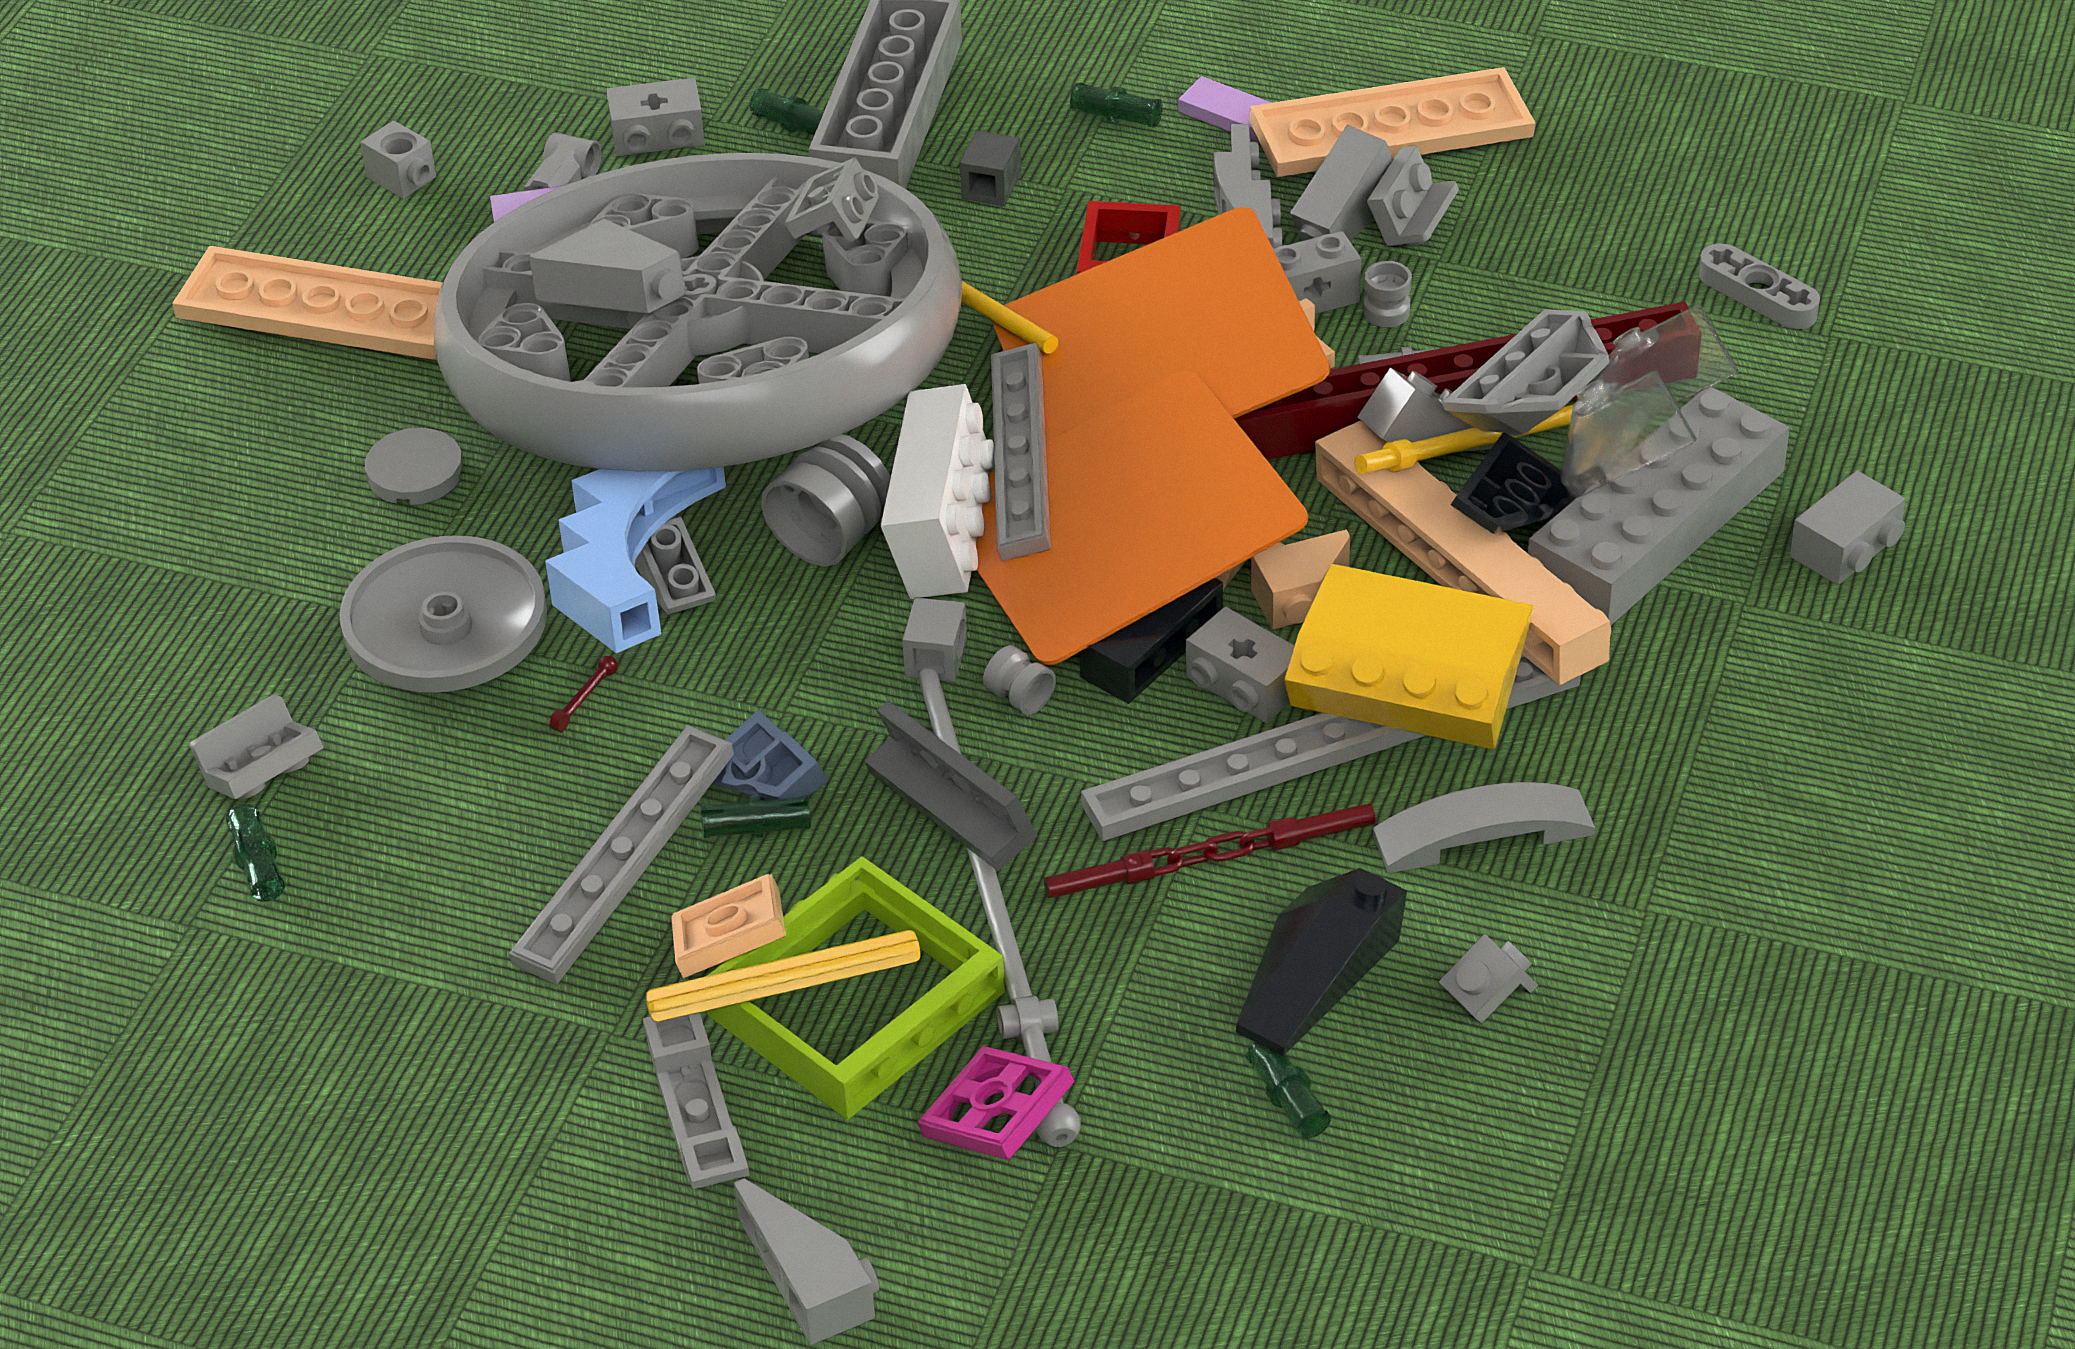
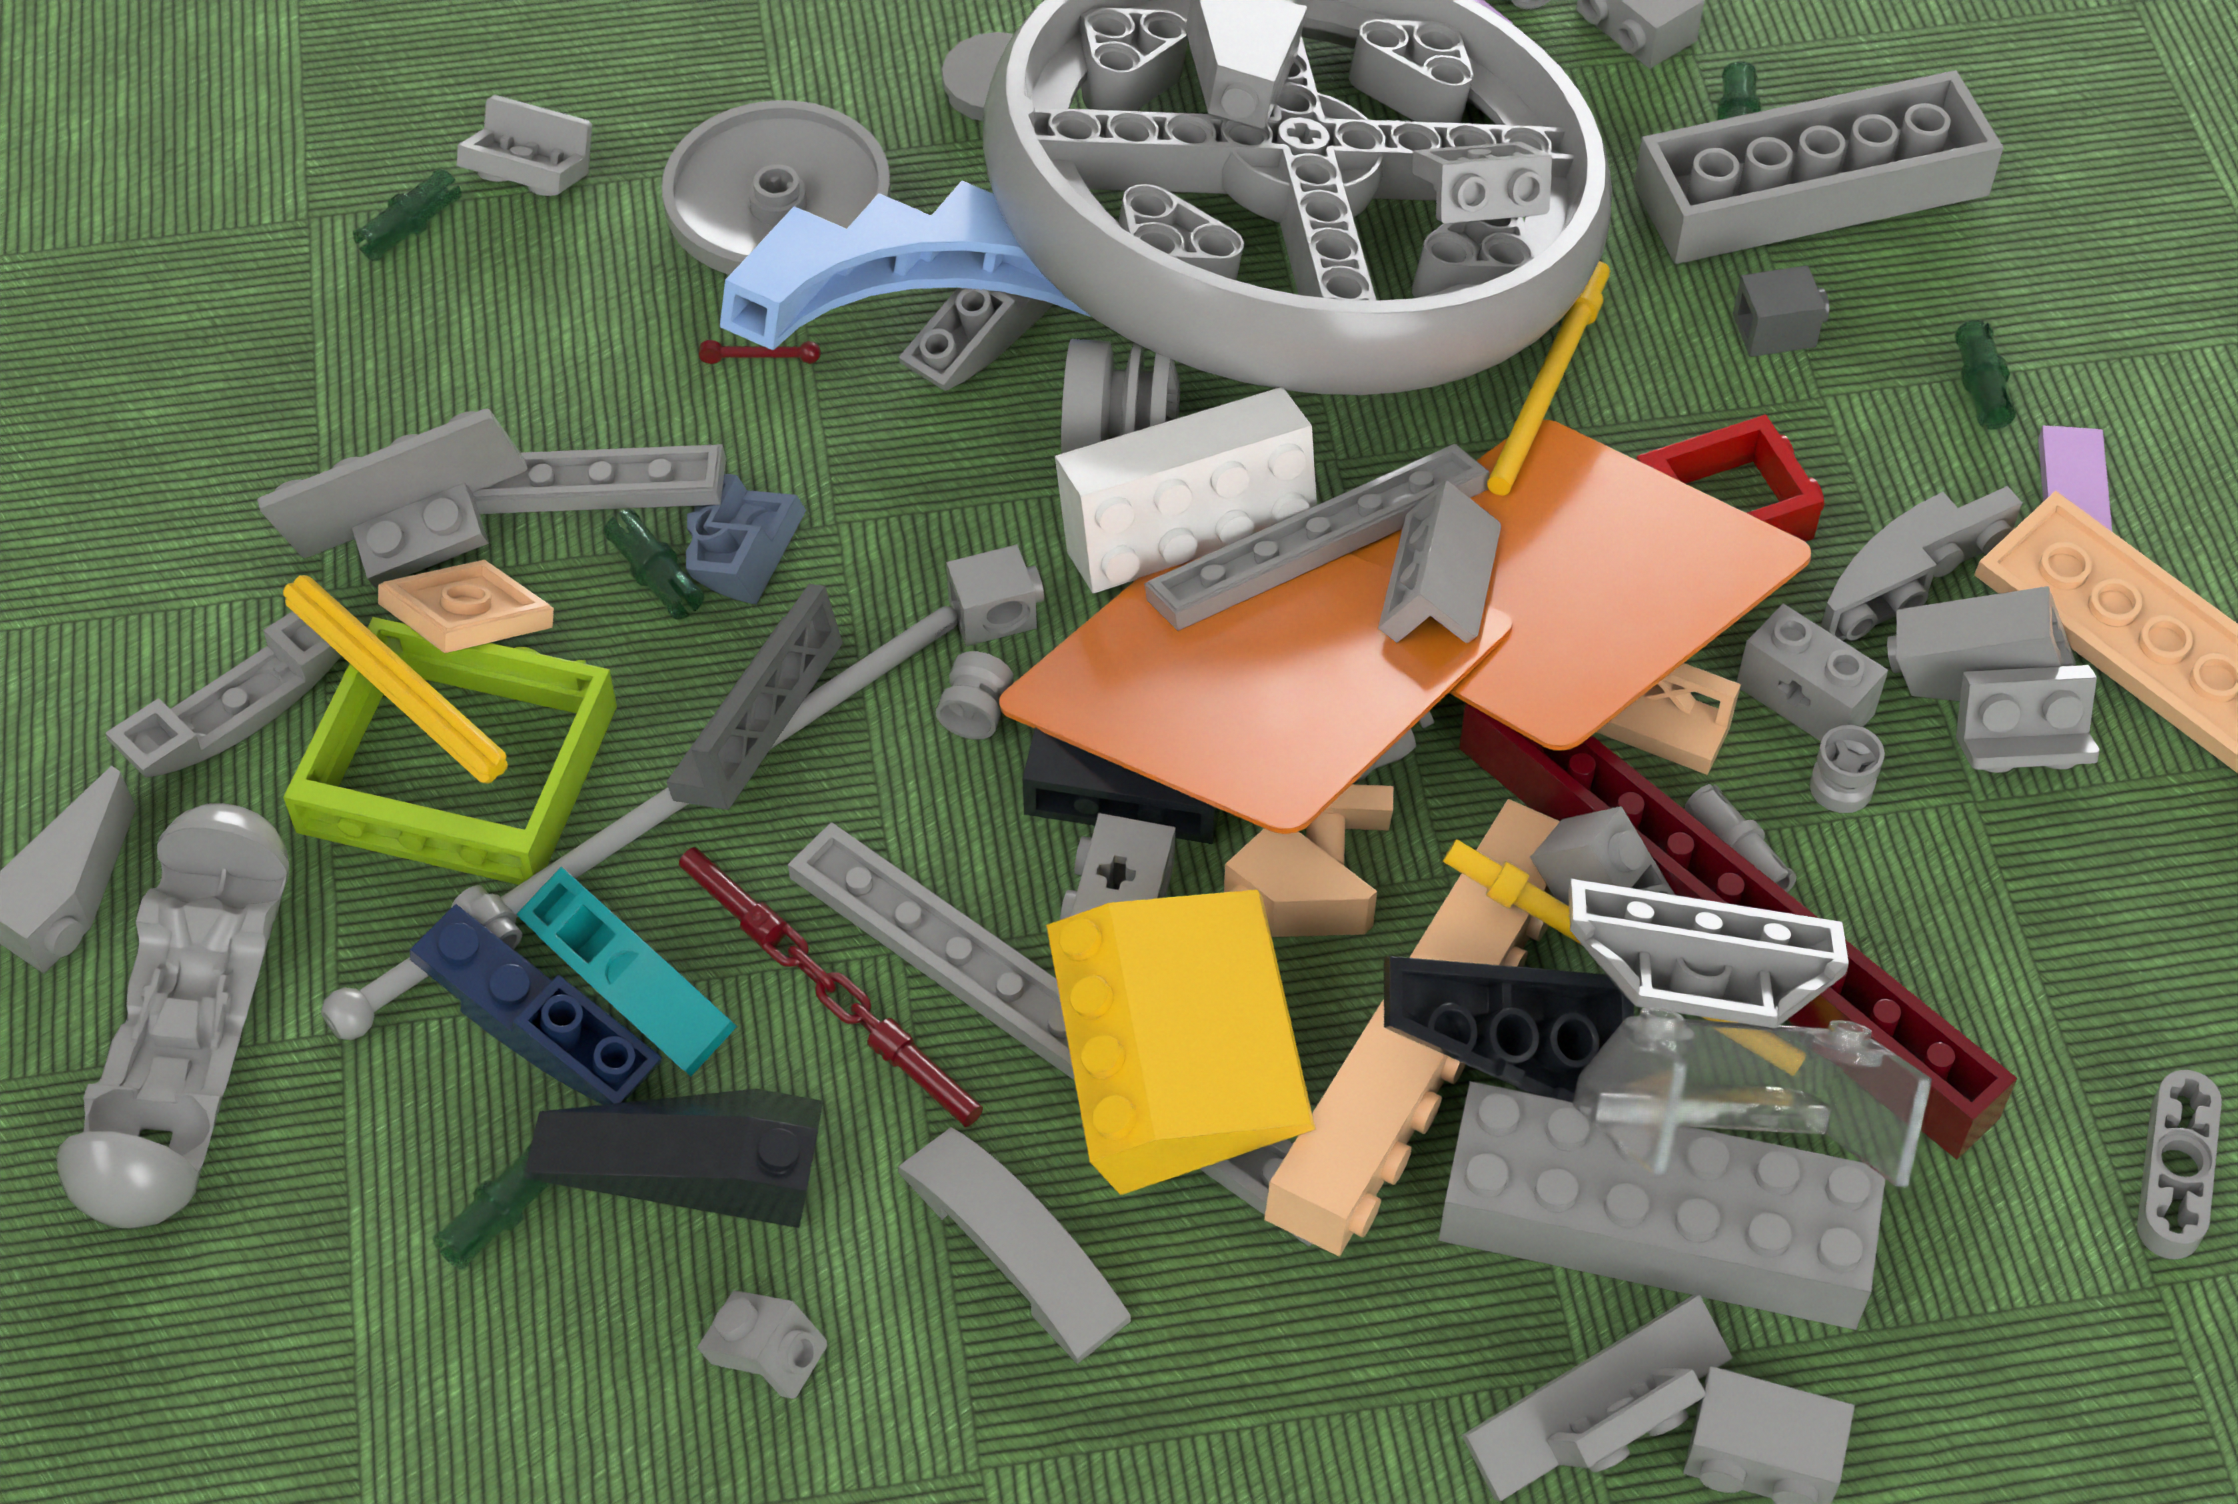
camera: 60 degrees right, 10 degrees up
(606, 929) = (402, 502): none -> light grey bracket
(983, 1215) = (186, 1013): none -> light grey piece
(992, 1073) = (320, 914): dark pink piece -> none
(1111, 388) = (1441, 566): none -> light grey panel
(1132, 940) = (626, 971): none -> teal slope
(1147, 1011) = (532, 1014): none -> dark blue slope
(1787, 585) = (1602, 1402): none -> light grey bracket

